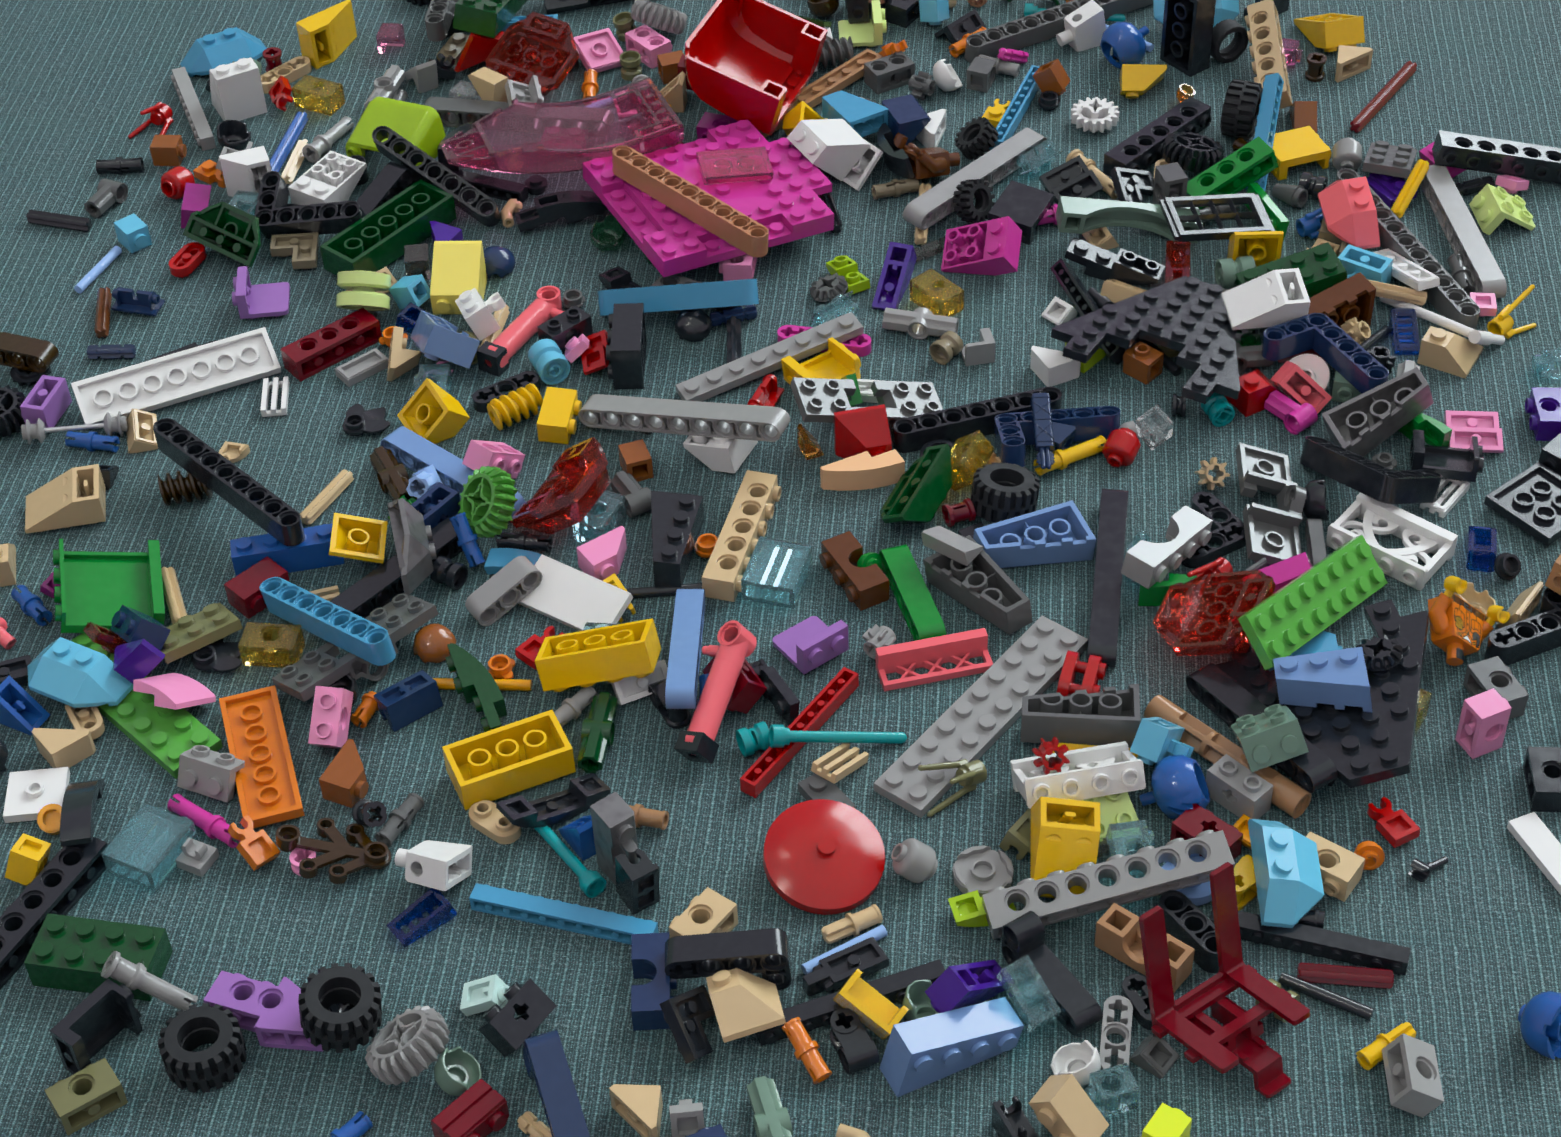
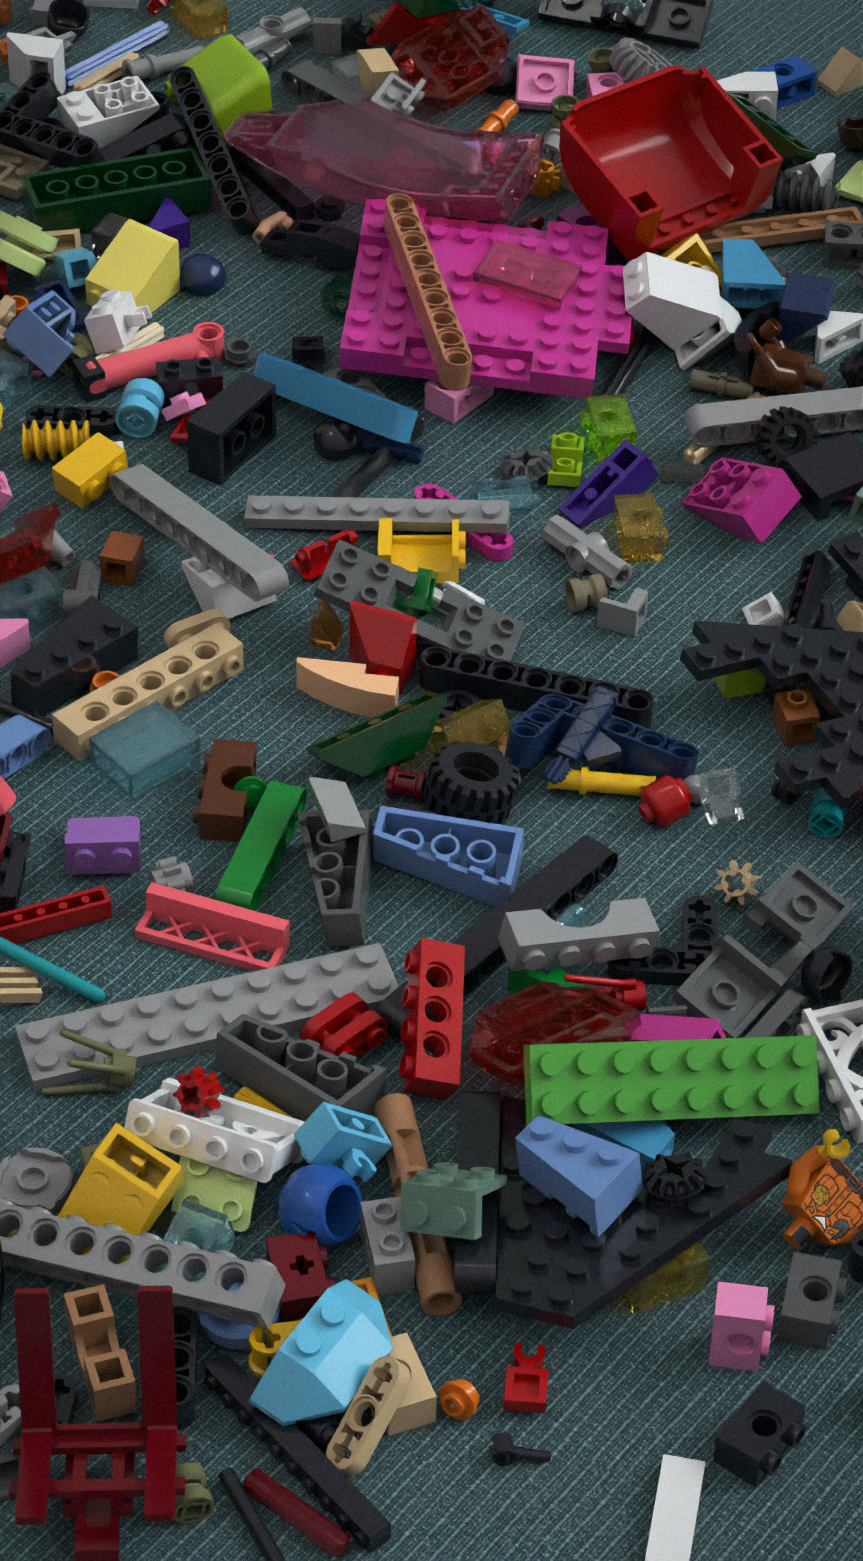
camera: 30 degrees right, 0 degrees up
(730, 484) = (192, 625): none -> tan plate
(857, 242) = (607, 424): none -> clear neon green brick
(1052, 366) = (680, 680): white slope -> none
(1135, 640) = (444, 966): none -> red brick
(1344, 868) = (384, 1410): none -> tan beam

